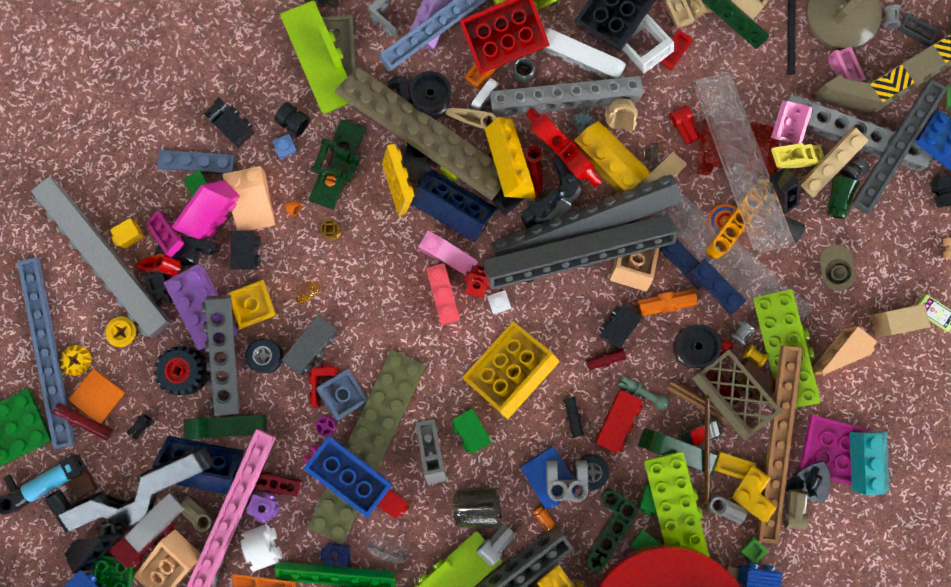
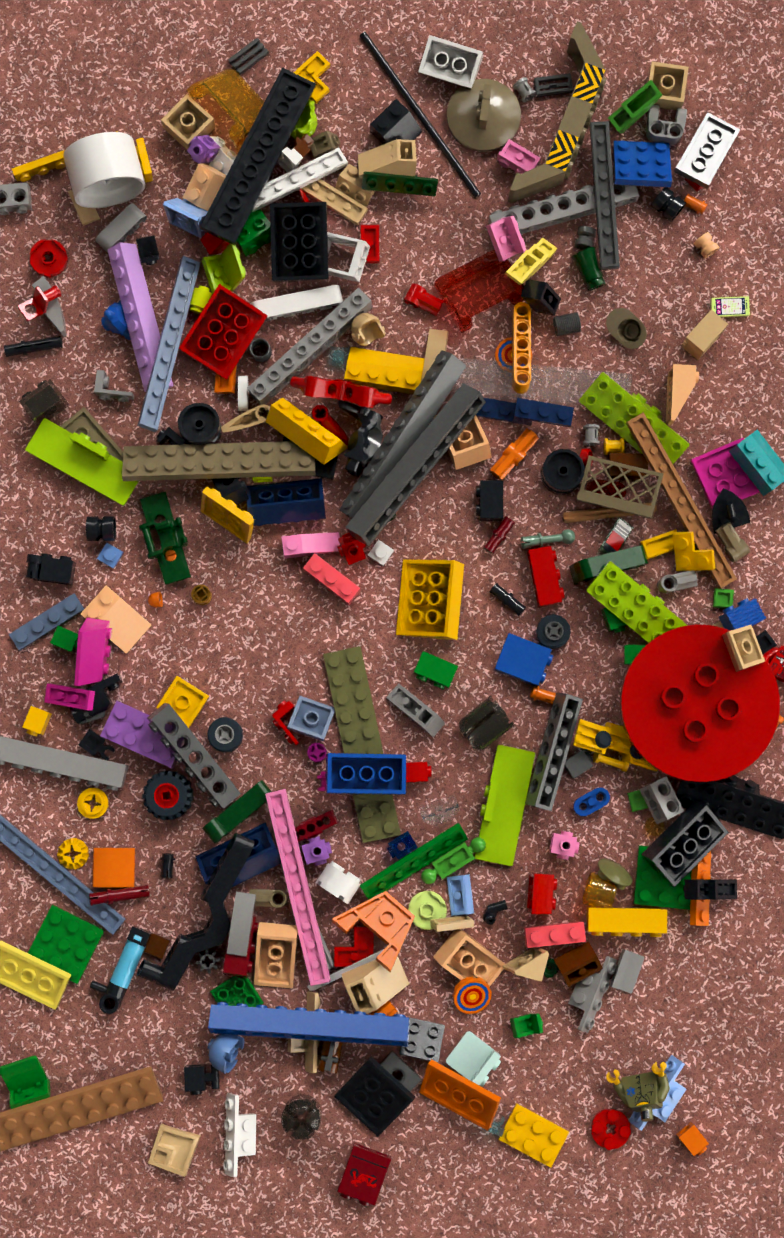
camera: 40 degrees left, 0 degrees up
(86, 553) = (205, 987): black slope -> none
(159, 263) = (84, 723): red piece -> none
(245, 250) = (144, 663): black brick -> none
(308, 296) = (224, 660): clear yellow arm -> none
(310, 345) = (256, 698): dark grey brick -> none
(492, 548) = (520, 747): light grey piece -> none
(567, 485) = (548, 641): light grey piece -> none
(607, 533) = (600, 668): dark green beam -> none
(651, 154) = (414, 343): clear smoke plate -> none
(707, 449) = (629, 547): reddish brown axle -> none
(743, 163) = (491, 297): clear plate -> none
(833, 162) = (562, 245): tan plate -> none

